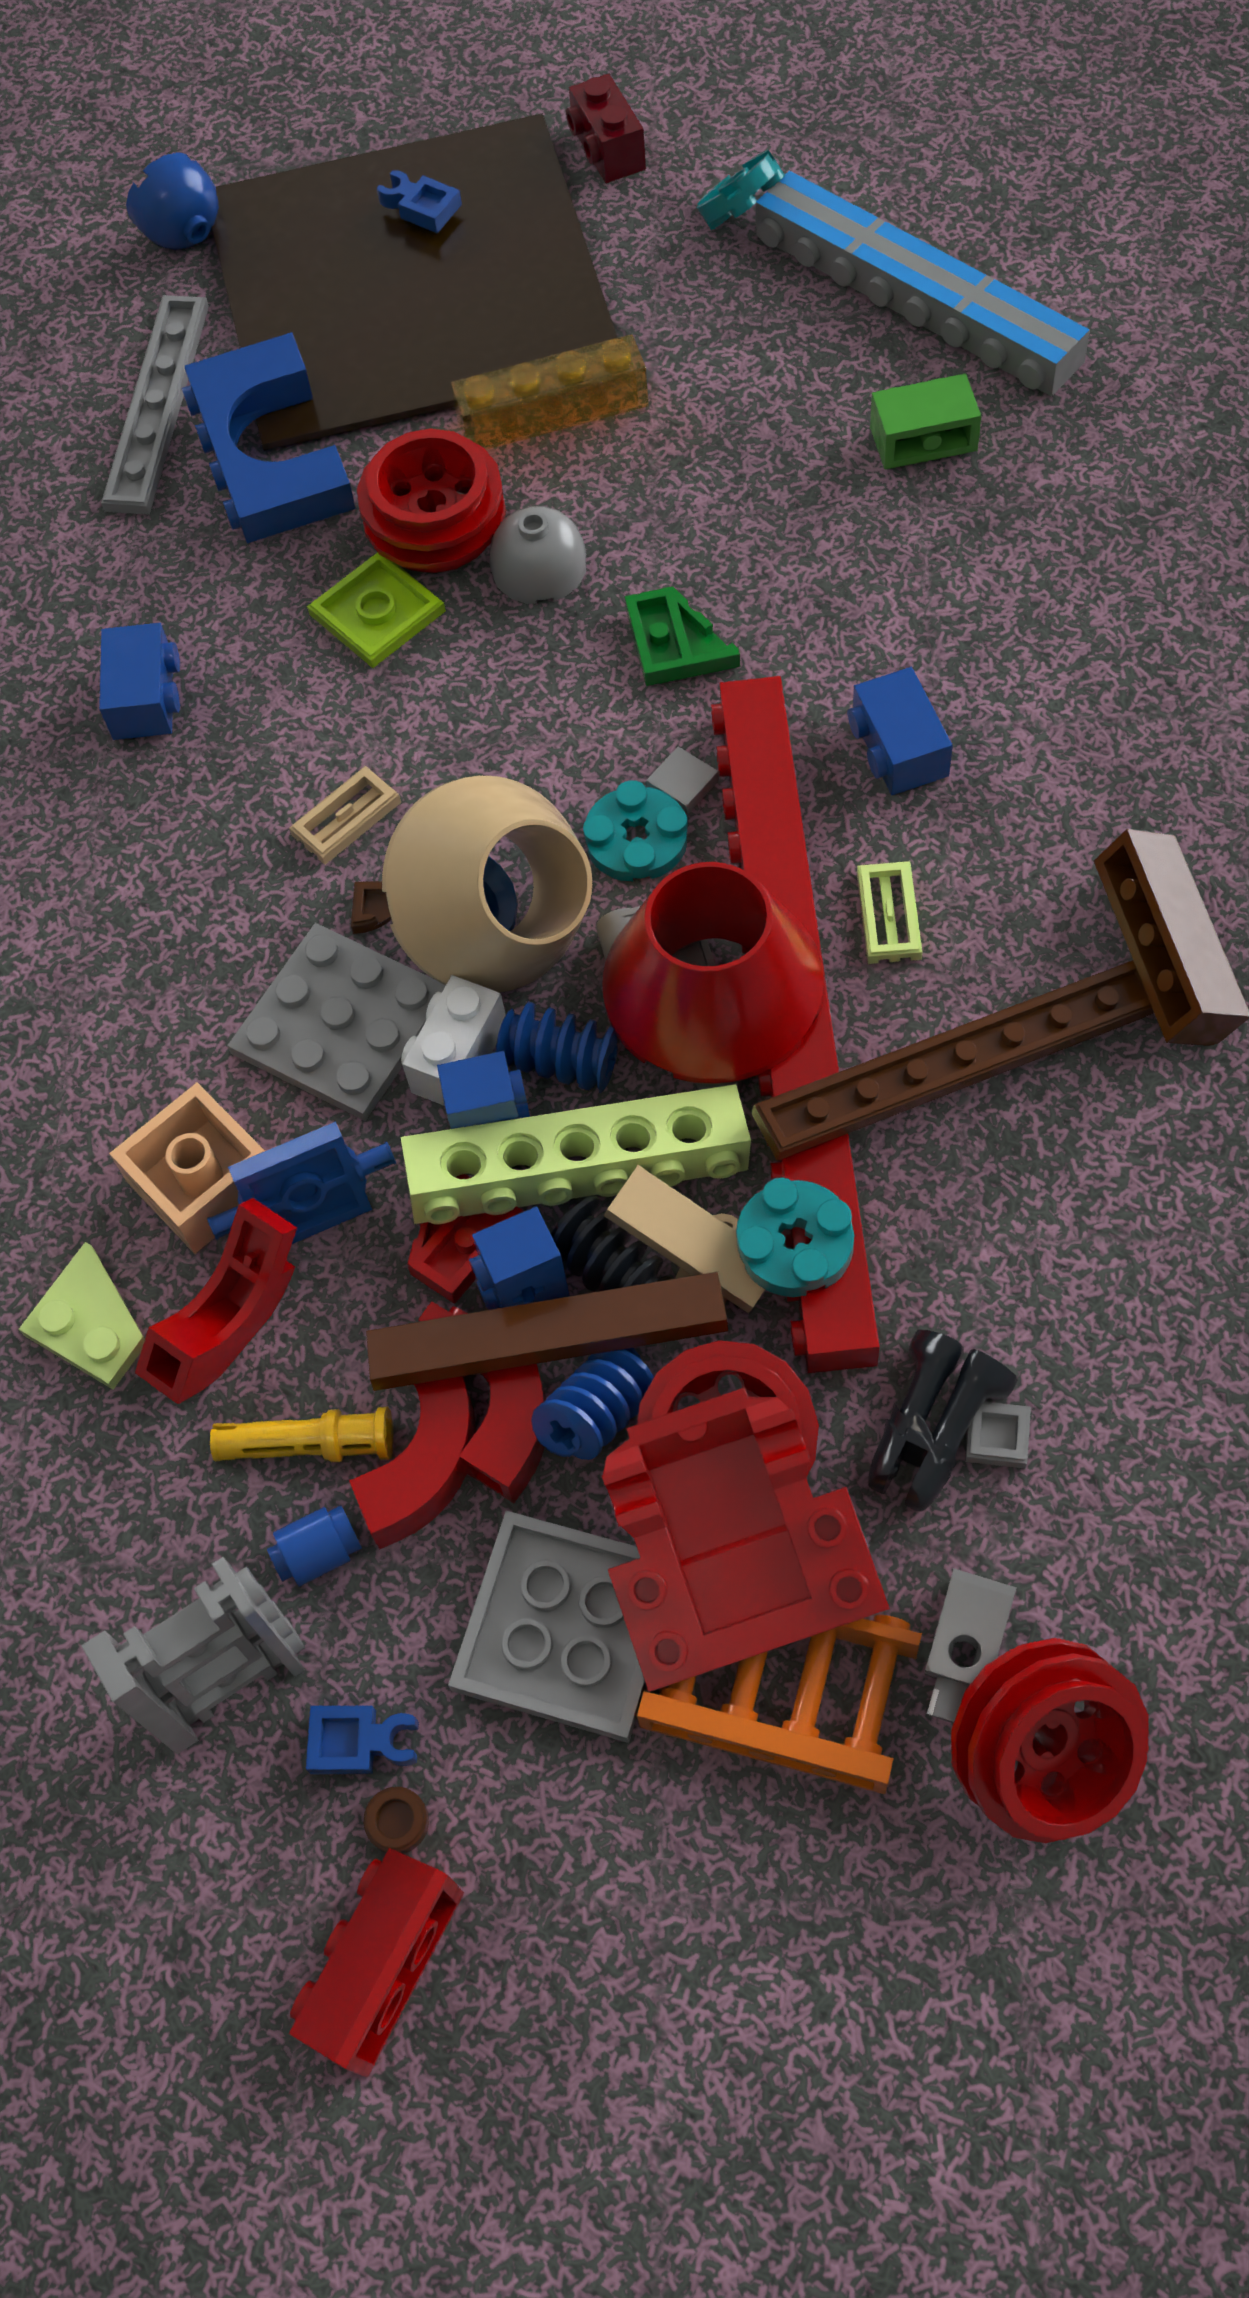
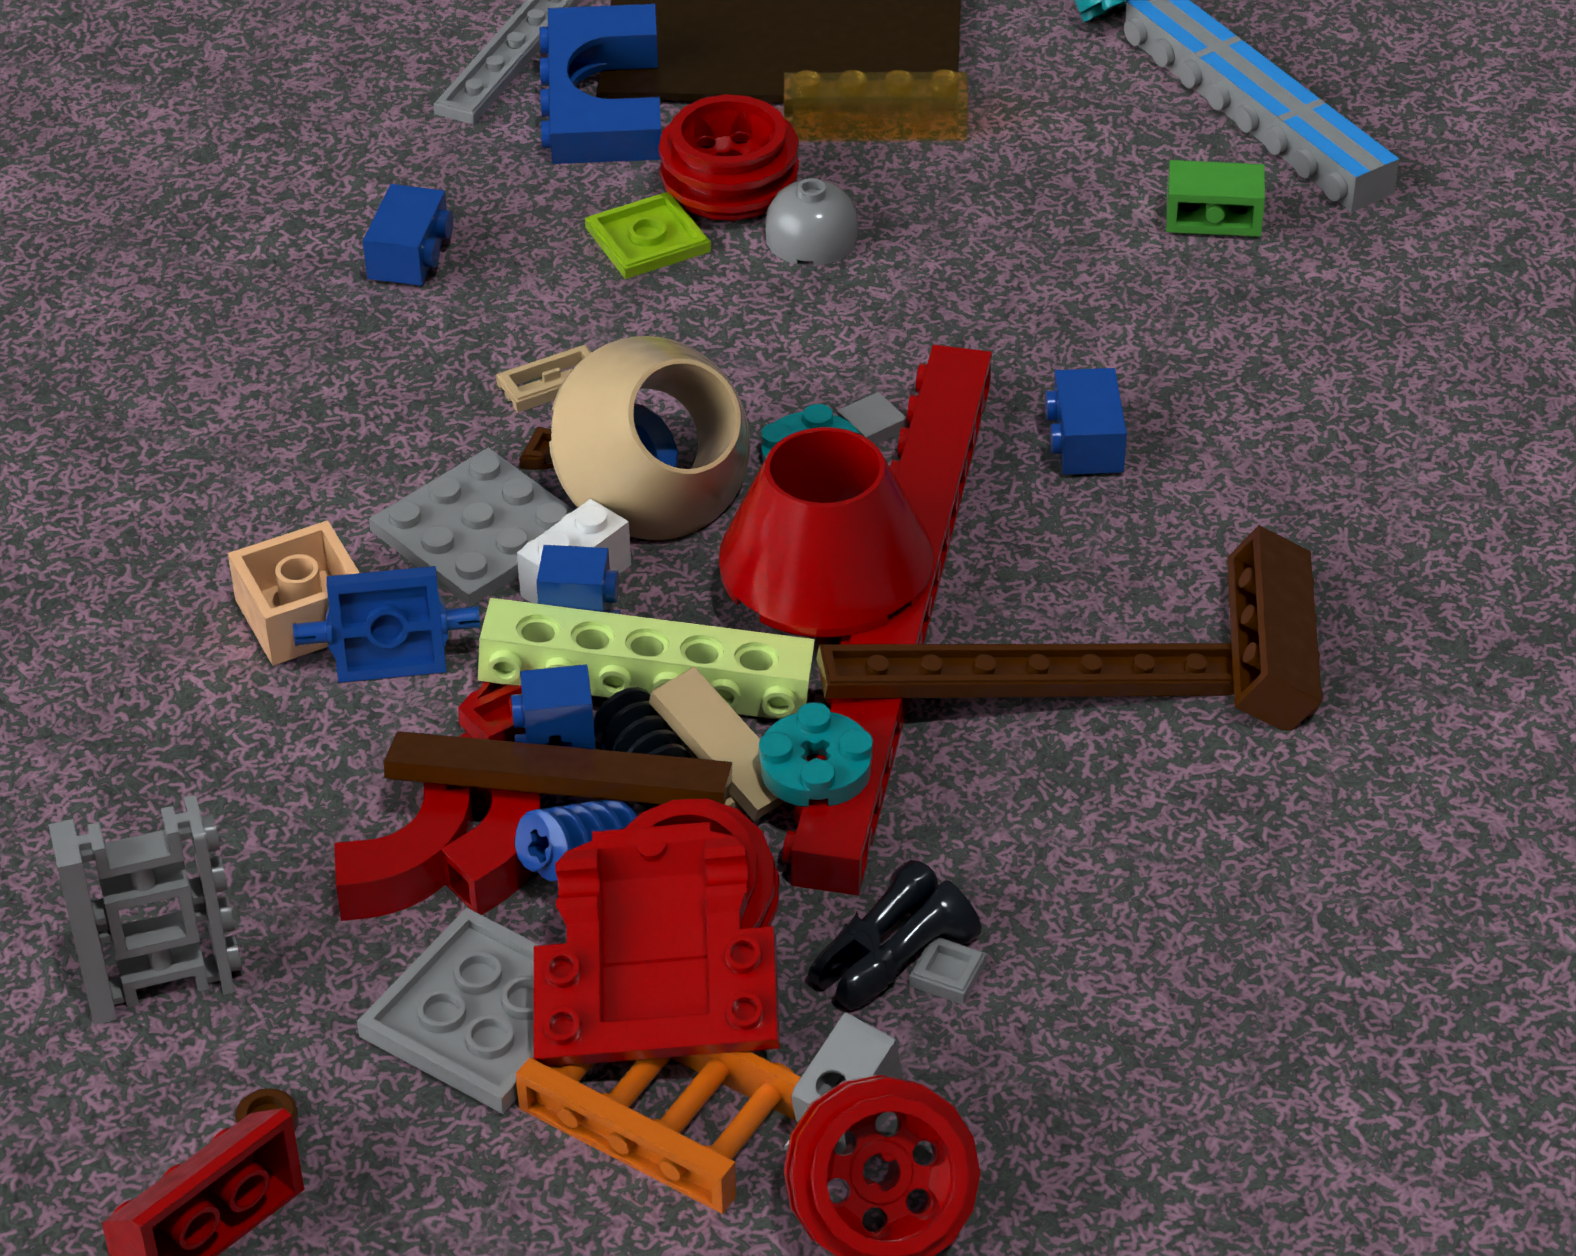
camera: 10 degrees right, 20 degrees down
(86, 1321) = (153, 690): yellowish green wing -> none
(209, 1333) = (291, 704): red arch -> none
(313, 1545) = (283, 894): blue brick -> none
(328, 1436) = (332, 820): yellow pin -> none
(348, 1739) = (252, 1041): blue plate -> none
(558, 1048) = (666, 581): blue piece -> none
(674, 638) = (911, 312): green wing -> none
(893, 949) = (1015, 587): yellowish green tile -> none

